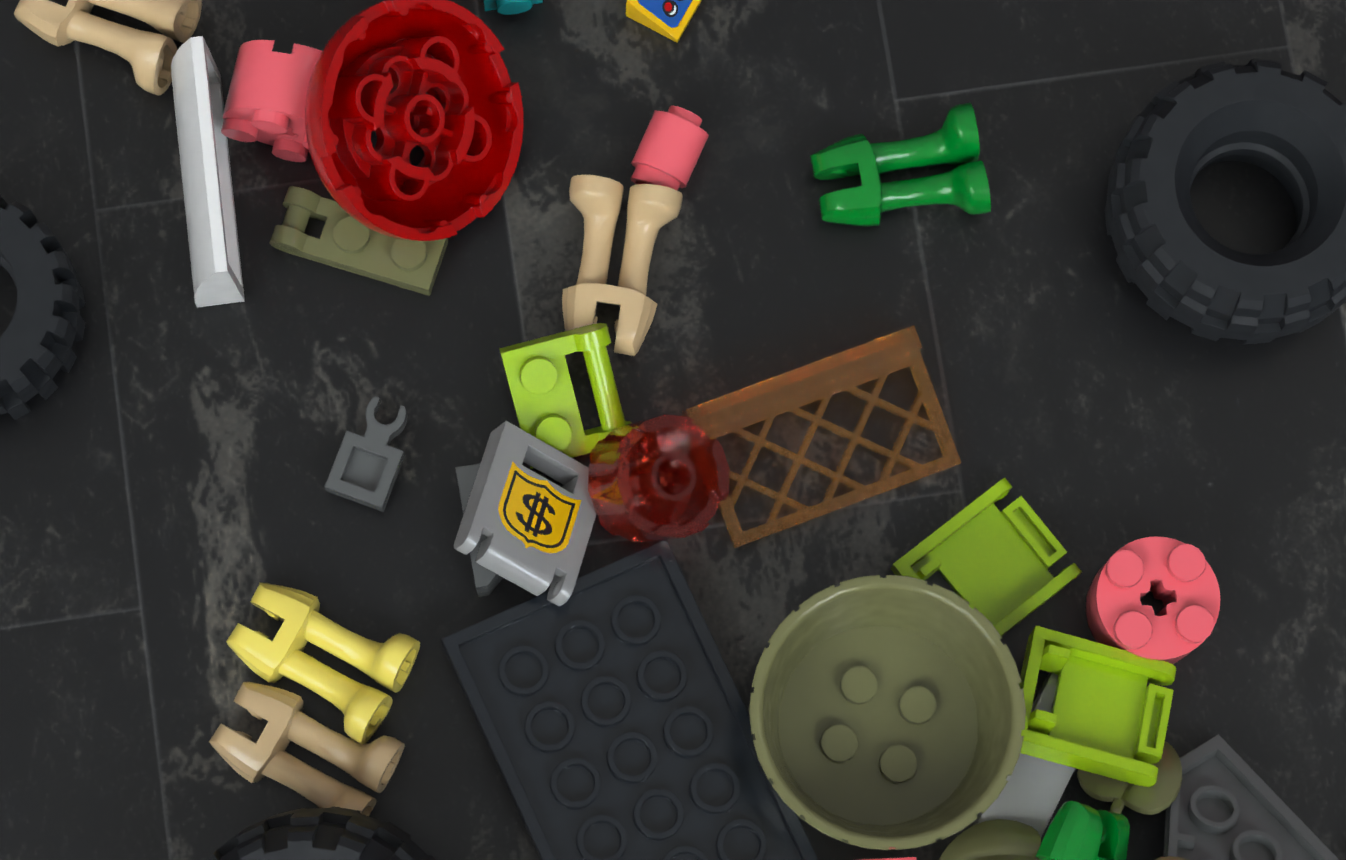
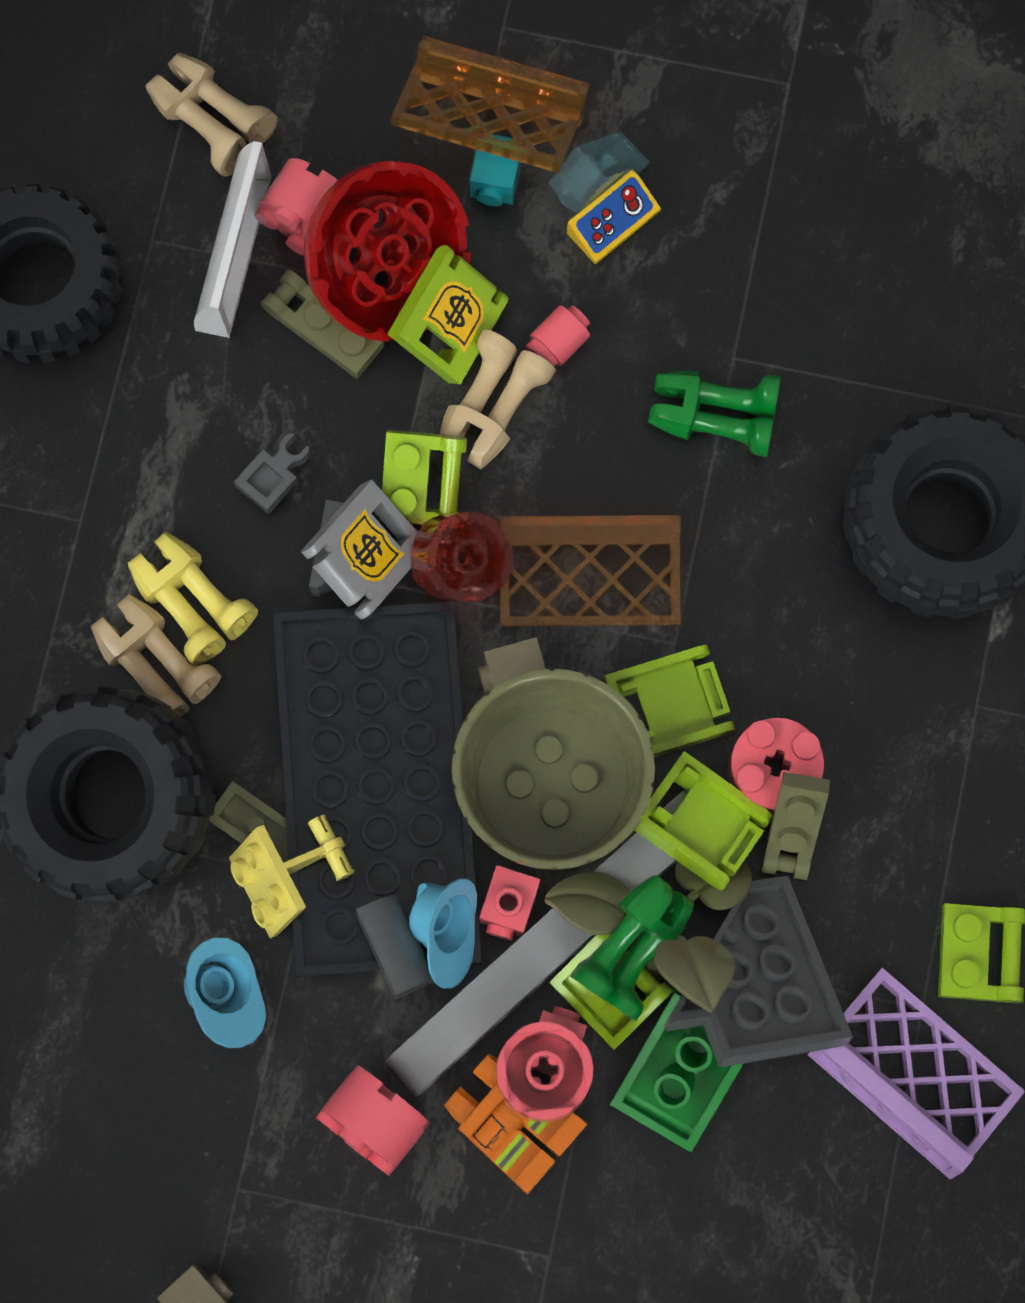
camera: 25 degrees right, 0 degrees up
(525, 159) = (454, 306): none -> lime container
(771, 596) = (510, 661): none -> dark tan brick
(1210, 668) = (795, 824): none -> olive plate

